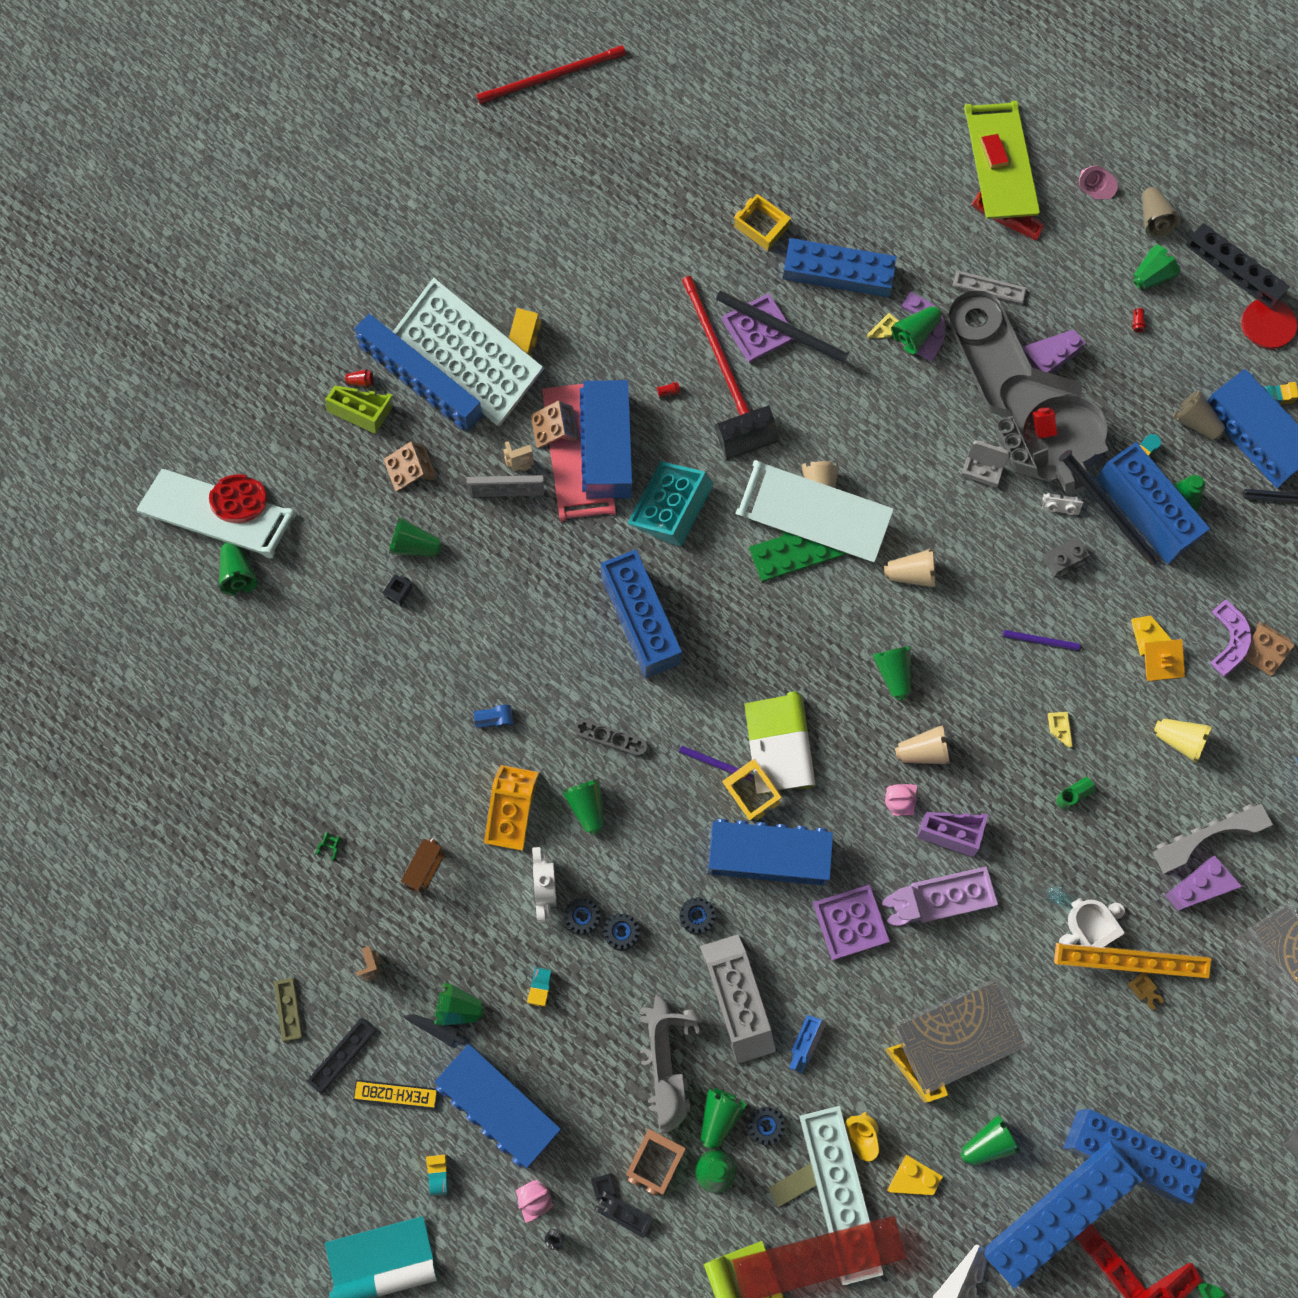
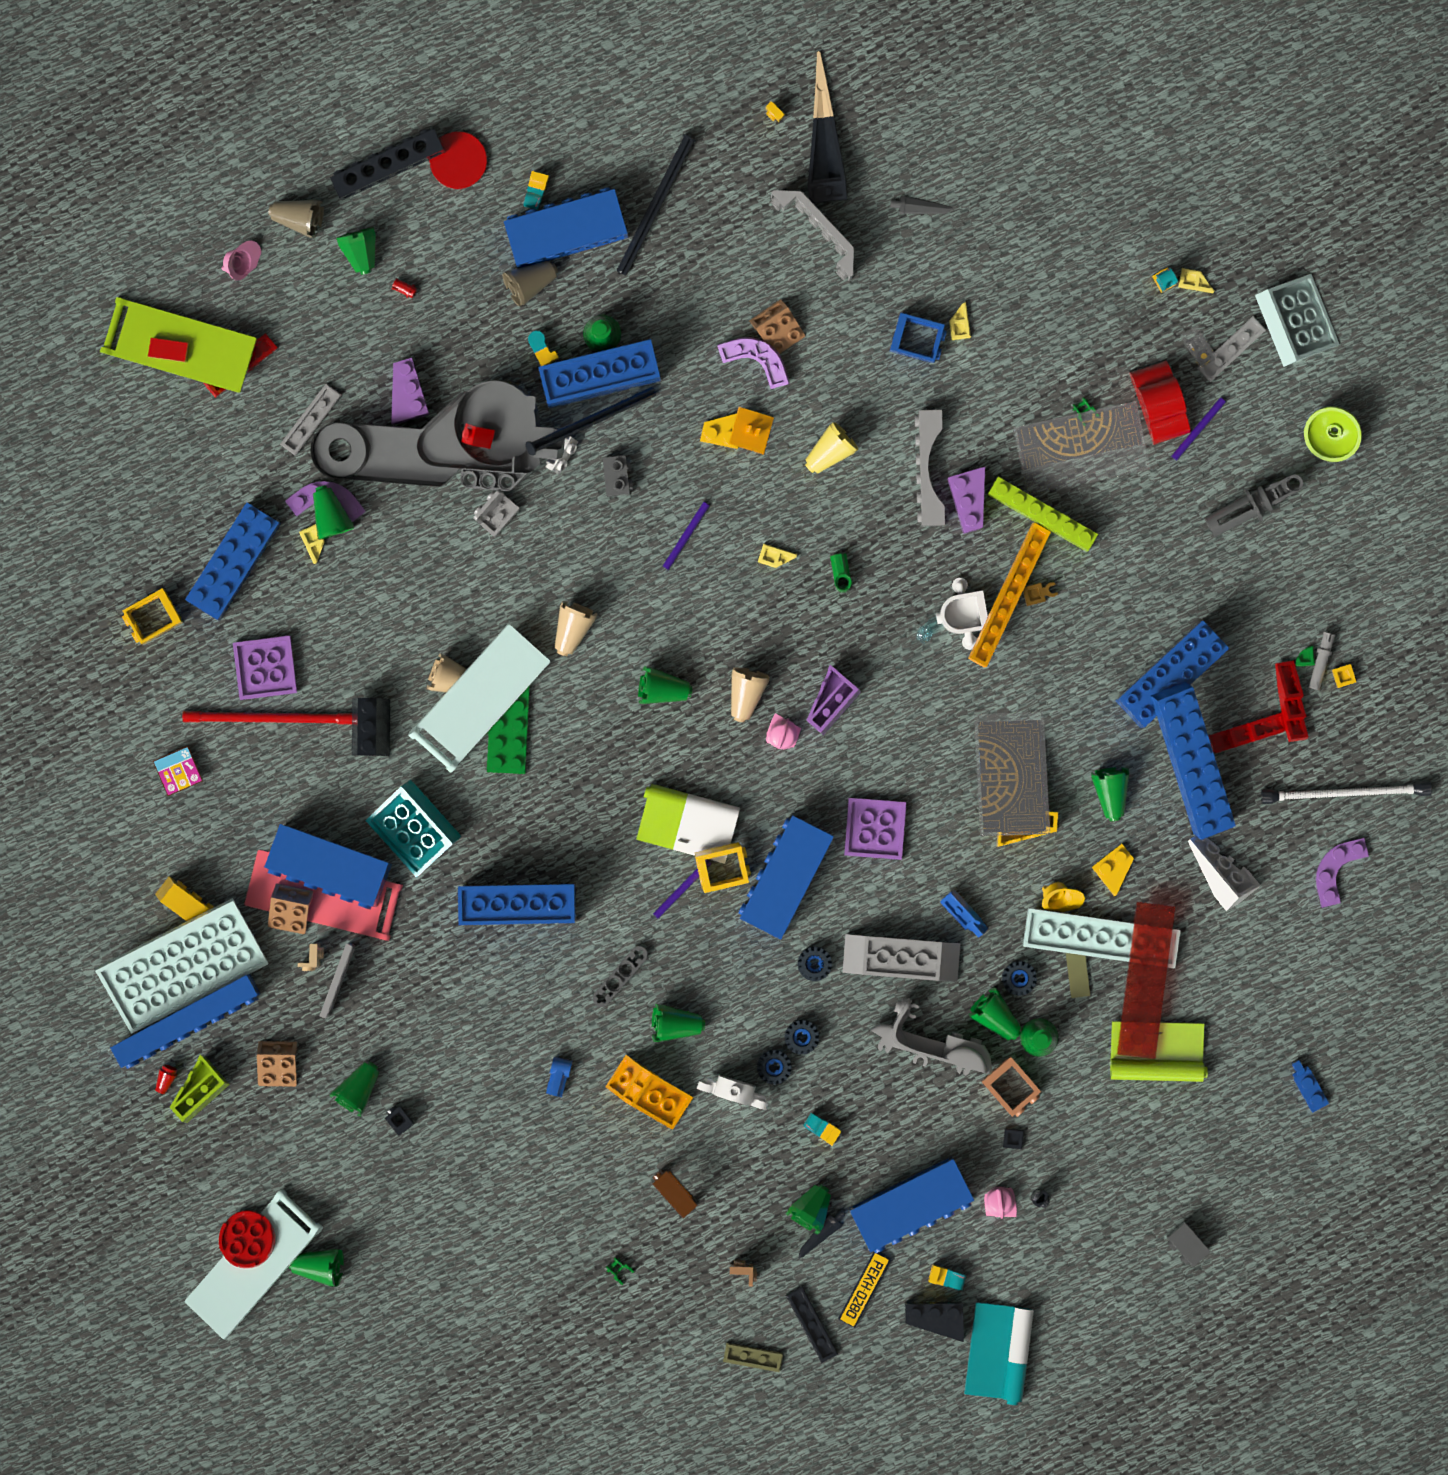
camera: 65 degrees left, 15 degrees up
(393, 1180) = (937, 1317): none -> black wedge
(624, 1214) = (1043, 1130): black hinge -> none
(637, 289) = (177, 771): none -> piece
(669, 389) = (295, 783): red pin -> none
(782, 326) = (275, 646): black axle -> none
(942, 897) = (886, 737): lavender hinge -> none
(1223, 963) = (1042, 514): none -> lime brick

